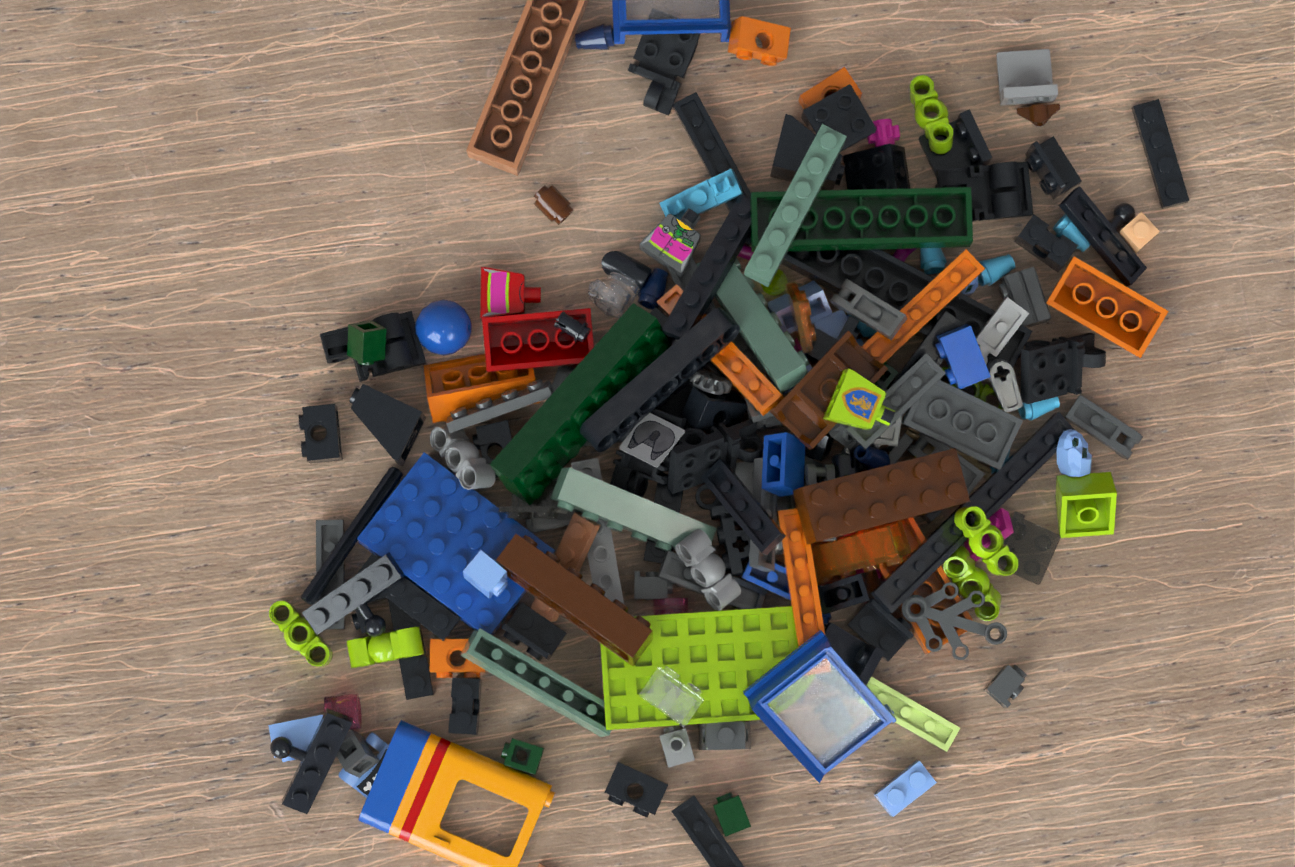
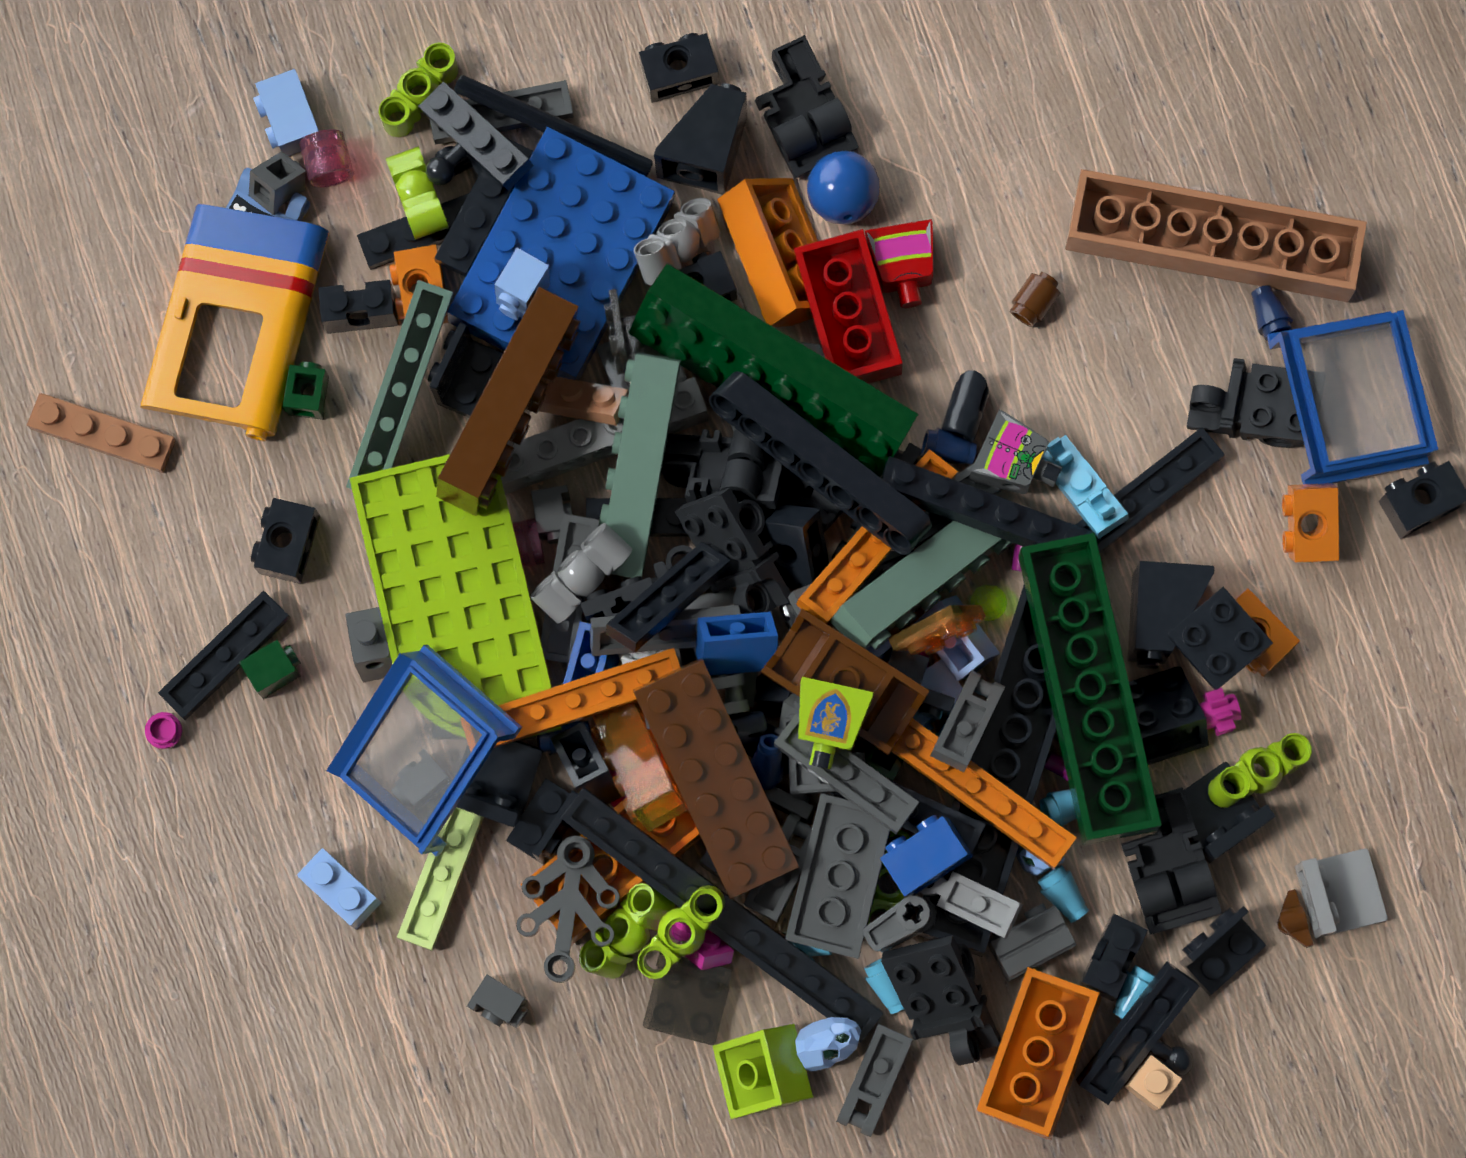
camera: 85 degrees right, 5 degrees down
(314, 761) = (258, 132): black plate -> none
(366, 342) = (802, 90): dark green brick -> none
(488, 408) = (758, 281): dark grey plate -> none
(572, 327) = (870, 343): black pin -> none
(614, 294) = (930, 395): clear piece -> none
(652, 439) = (736, 464): sticker -> none
(672, 696) = (404, 550): clear brick -> none
(676, 746) = (348, 582): light grey brick -> none
(711, 382) = (831, 532): dark grey gear -> none
(795, 205) = (1085, 588): sand green brick -> none
(1160, 154) = (1273, 1099): black plate -> none

